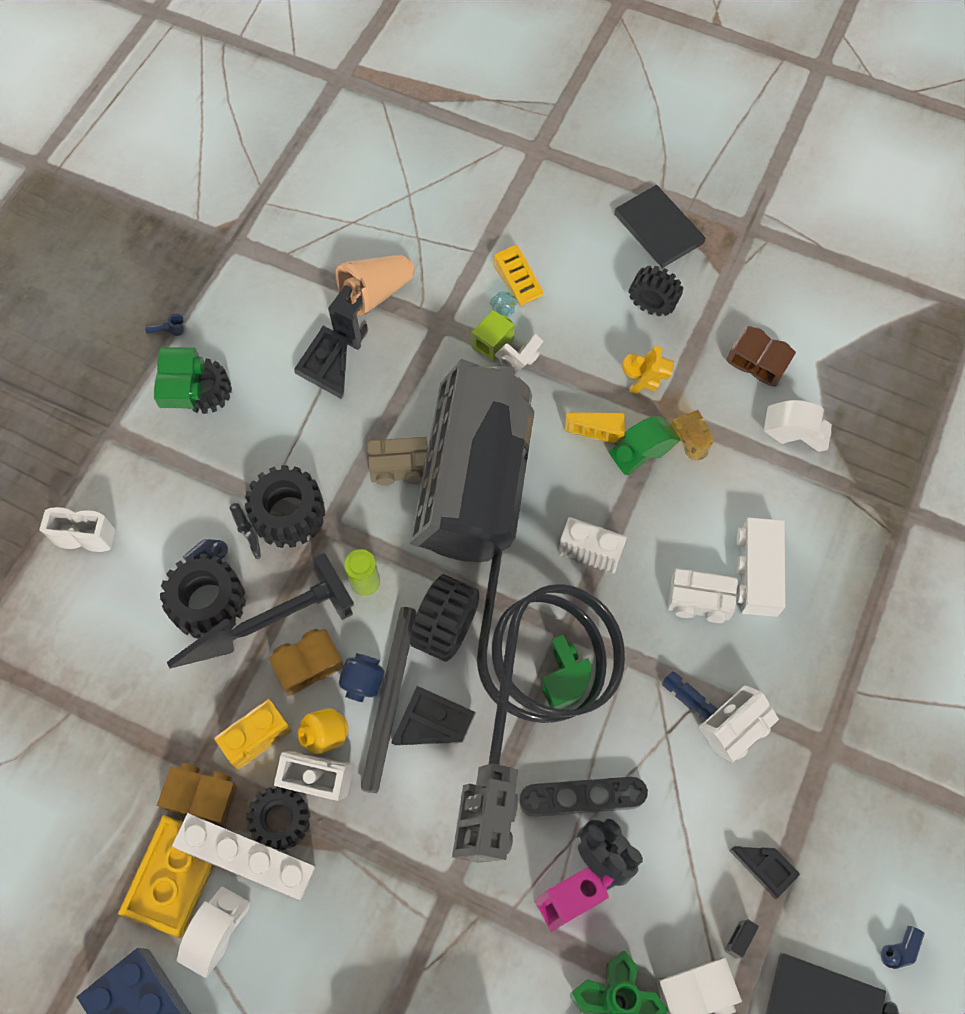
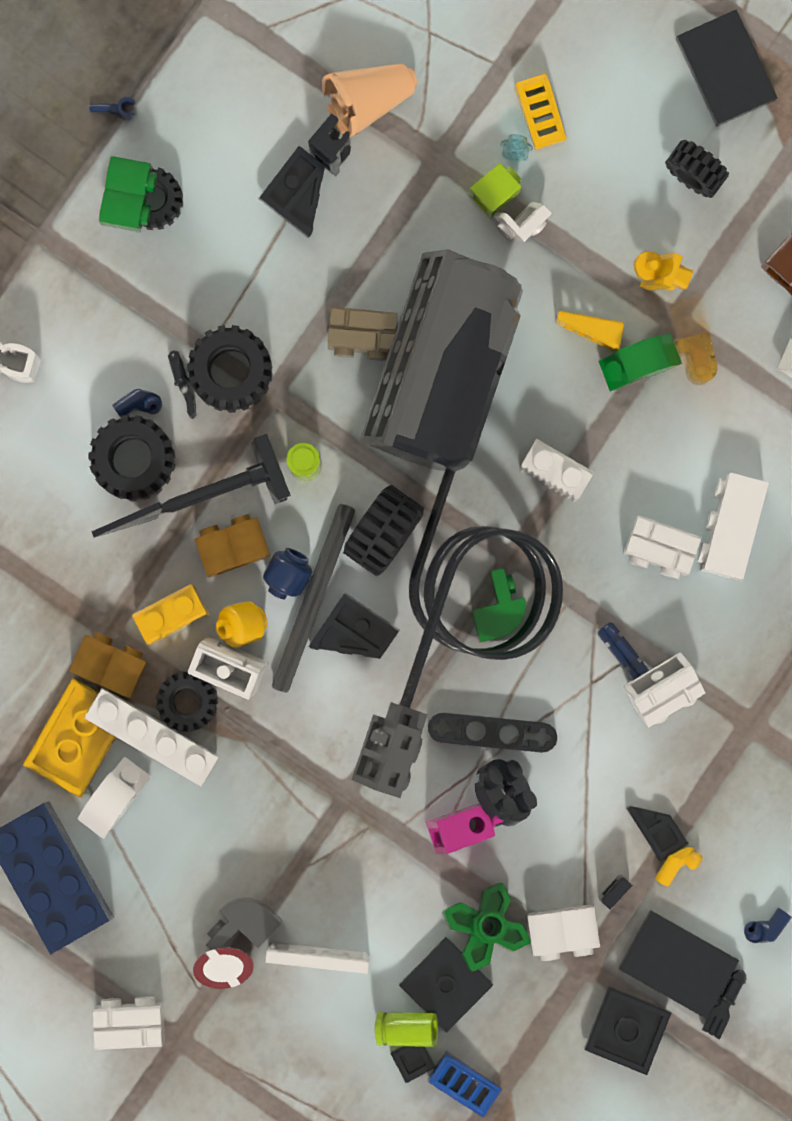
camera: 10 degrees right, 20 degrees up
(793, 896) = (675, 861): none -> yellow arm

